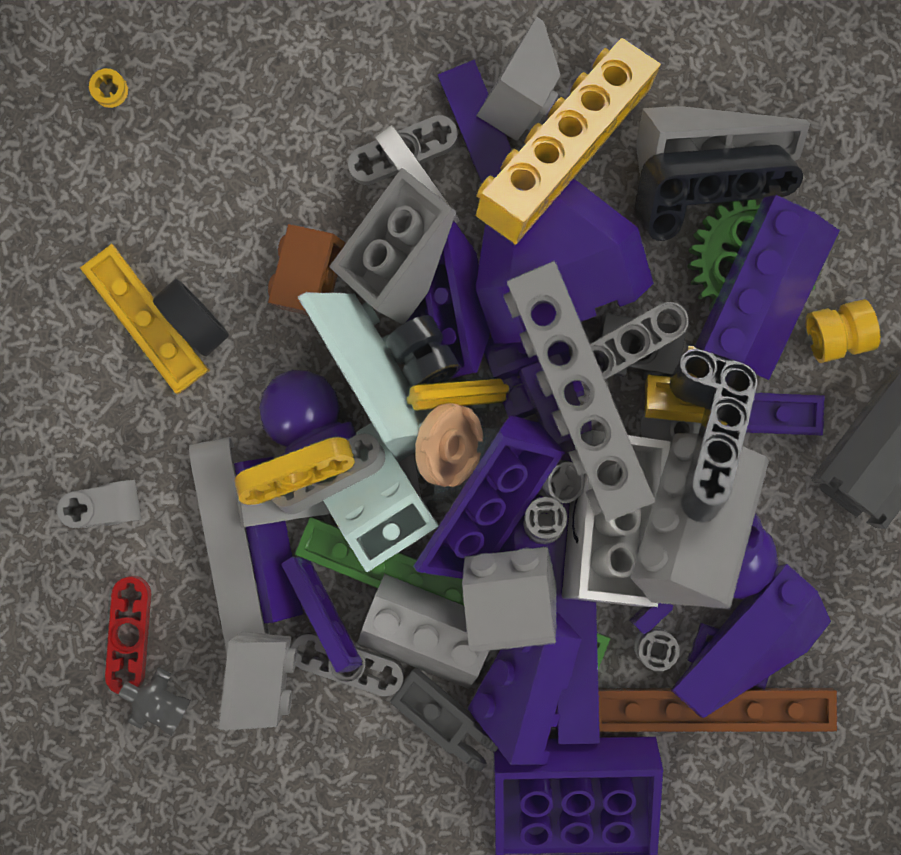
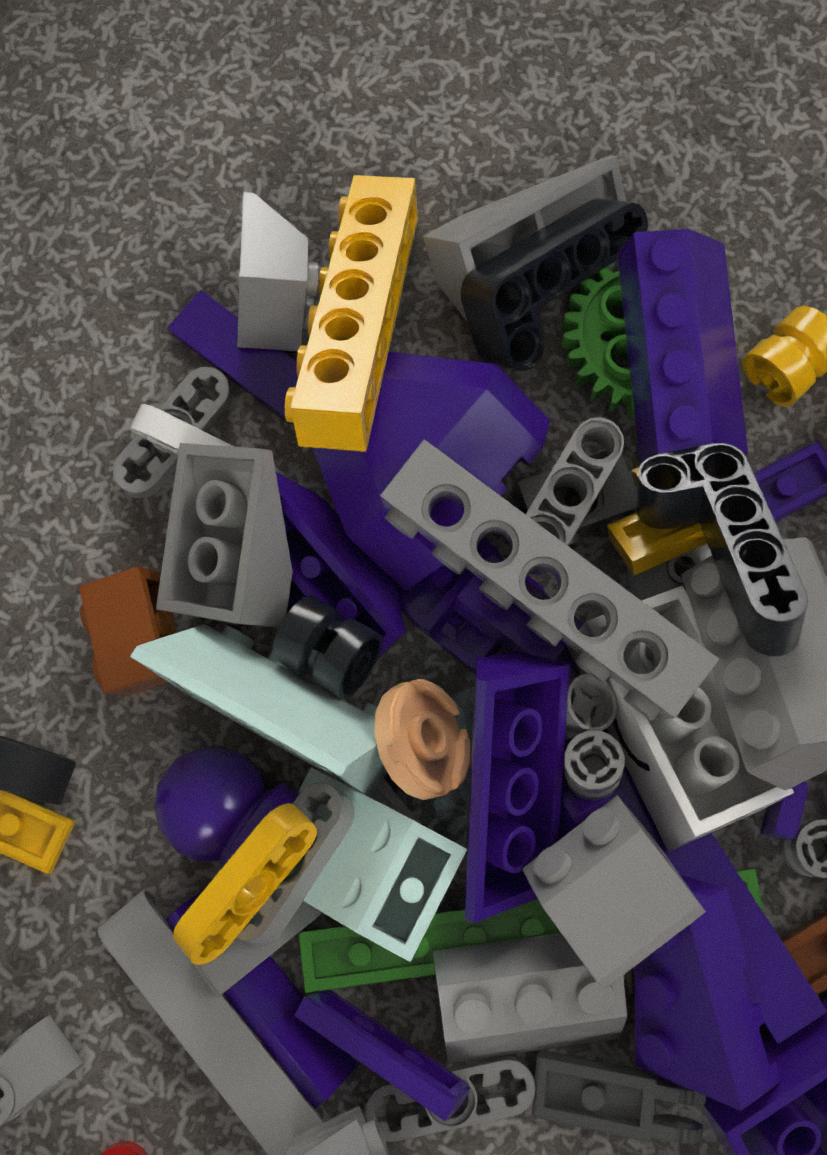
camera: 30 degrees left, 10 degrees down
(460, 393) = (404, 666): yellow axle -> none

